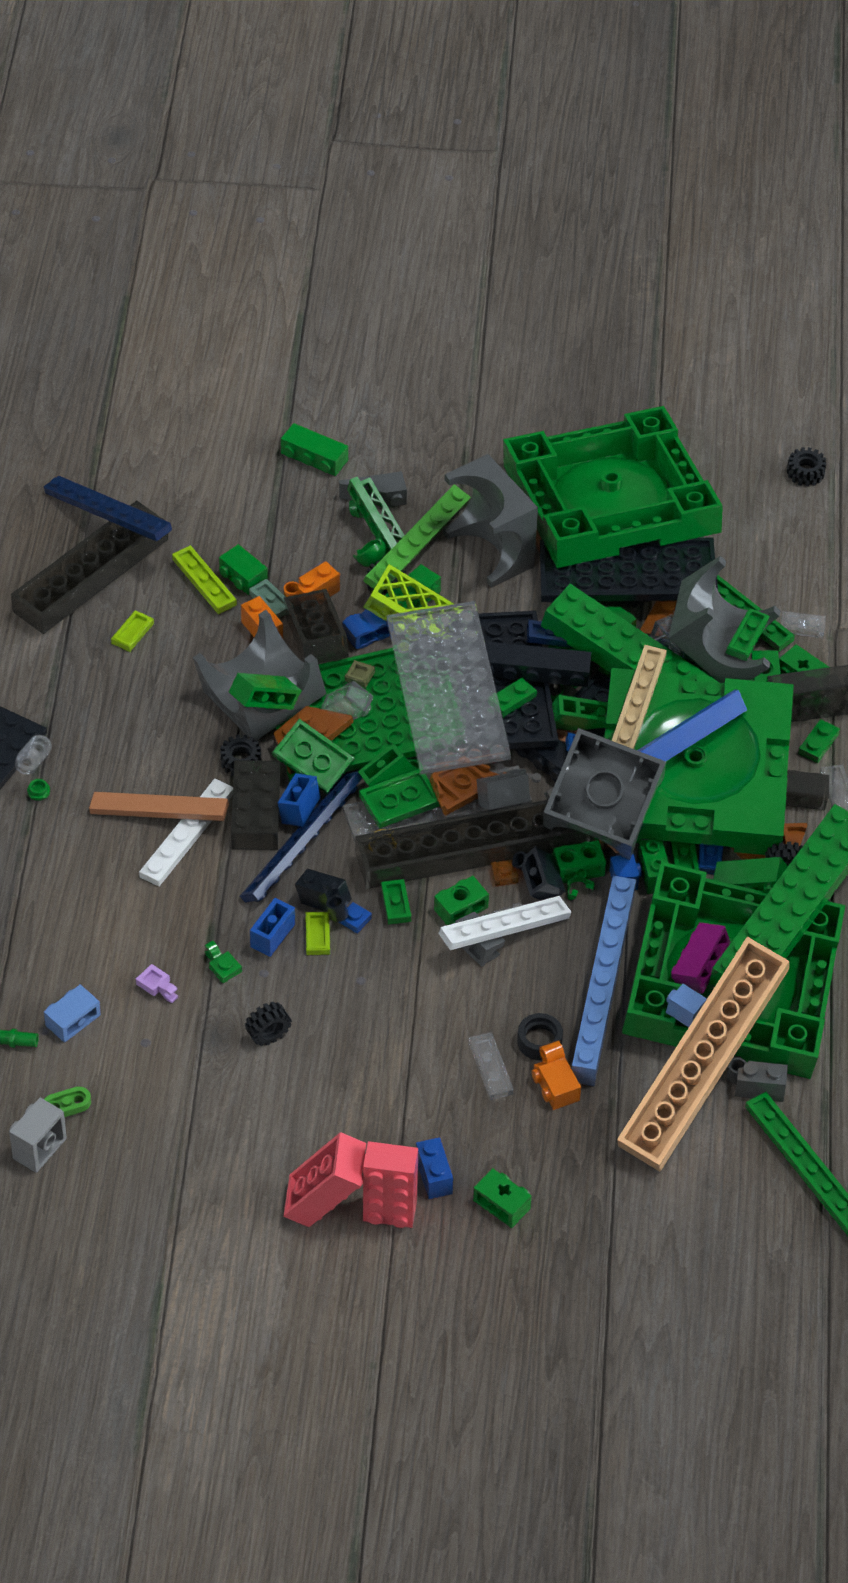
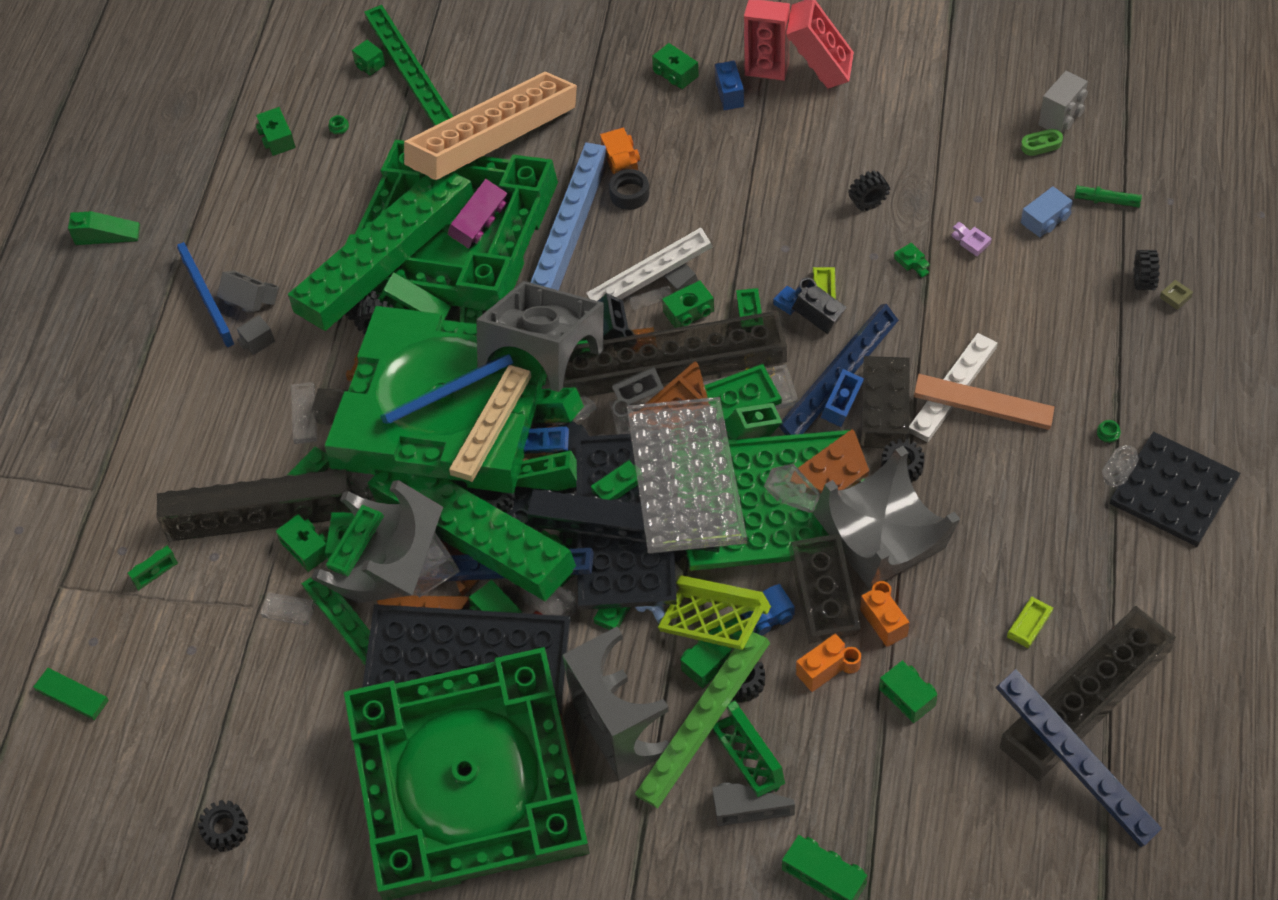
camera: 170 degrees left, 5 degrees up
(204, 579) = (953, 683): lime plate -> none
(264, 691) = (880, 464): green brick -> none
(270, 595) = (874, 652): sand green plate -> none
(272, 927) = (866, 276): blue brick -> none
(313, 754) = (828, 434): green tile -> none
(360, 673) = (777, 529): olive tile -> none
(371, 552) = (760, 705): green hair -> none
(491, 1066) = (674, 171): clear tile -> none
(684, 1004) = (500, 156): medium blue brick -> none

